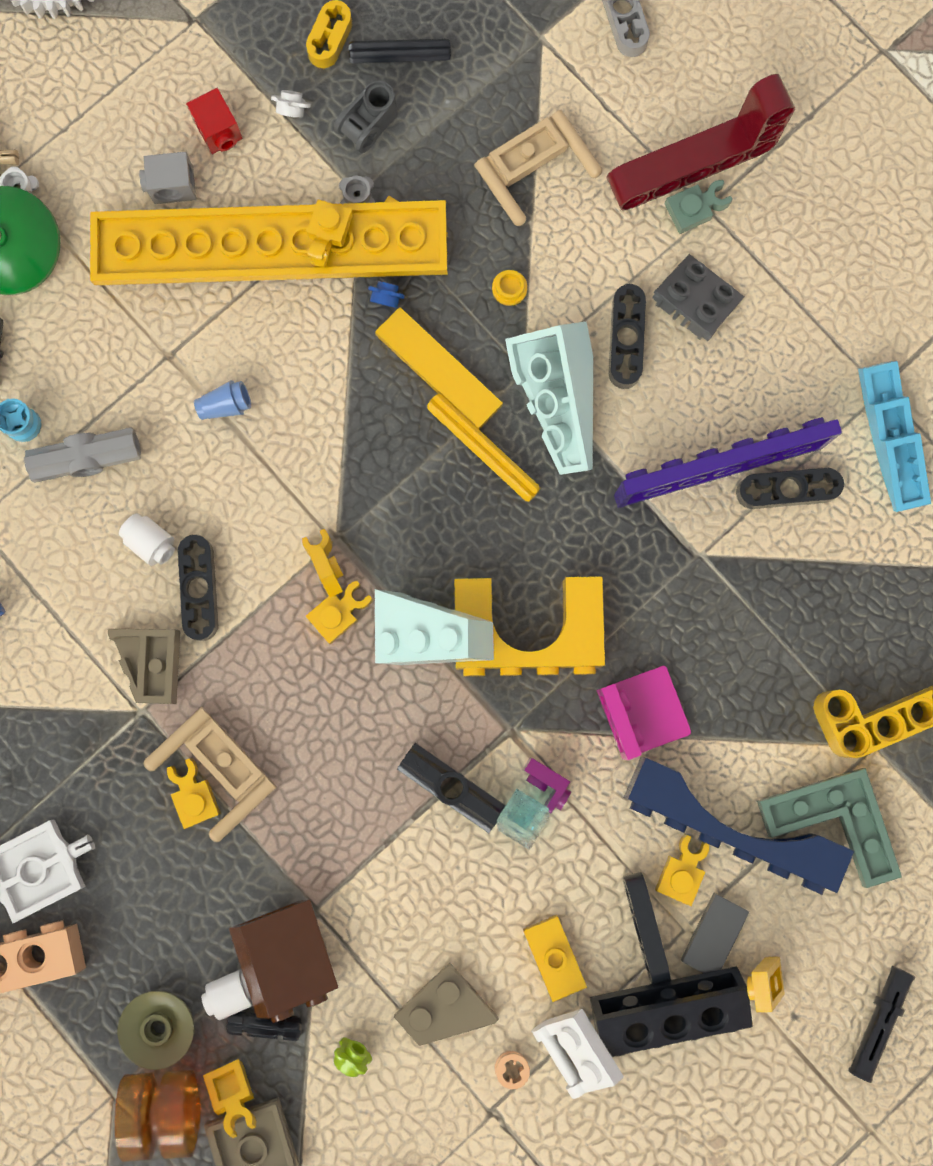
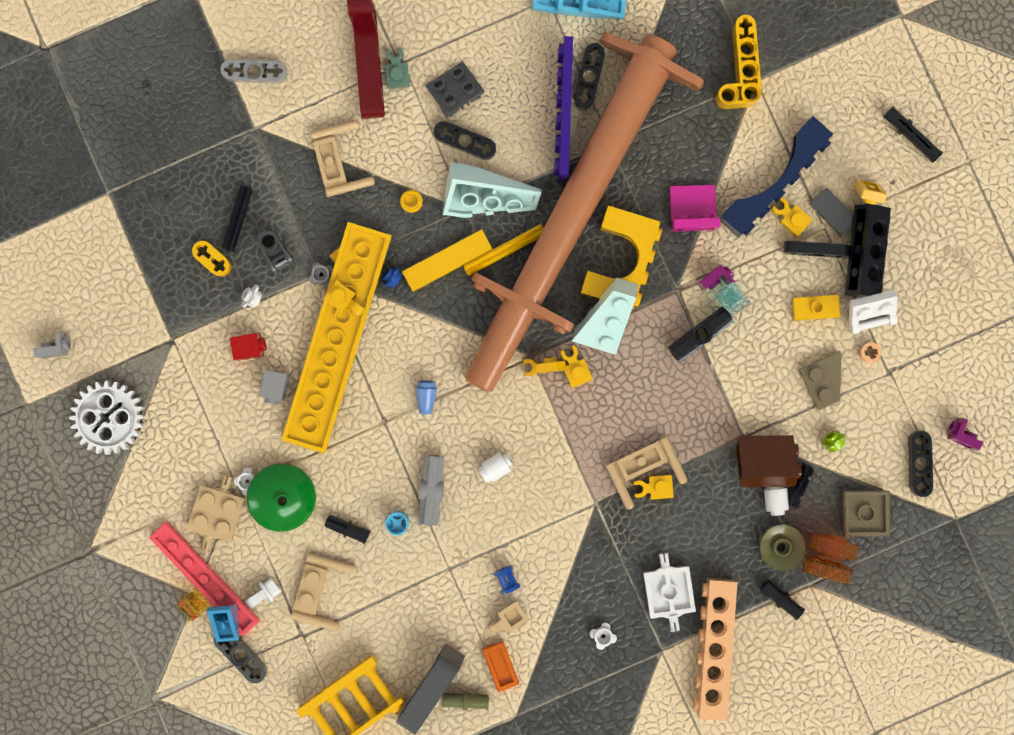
camera: 70 degrees left, 5 degrees up
(73, 1058) = (782, 600): none -> black pin
(149, 662) = (569, 488): dark tan wing -> none
(204, 560) = (549, 456): black beam -> none
(228, 1092) = (830, 515): yellow plate -> none
(674, 542) = (625, 113): none -> nougat piece
(855, 804) = (781, 107): sand green plate -> none

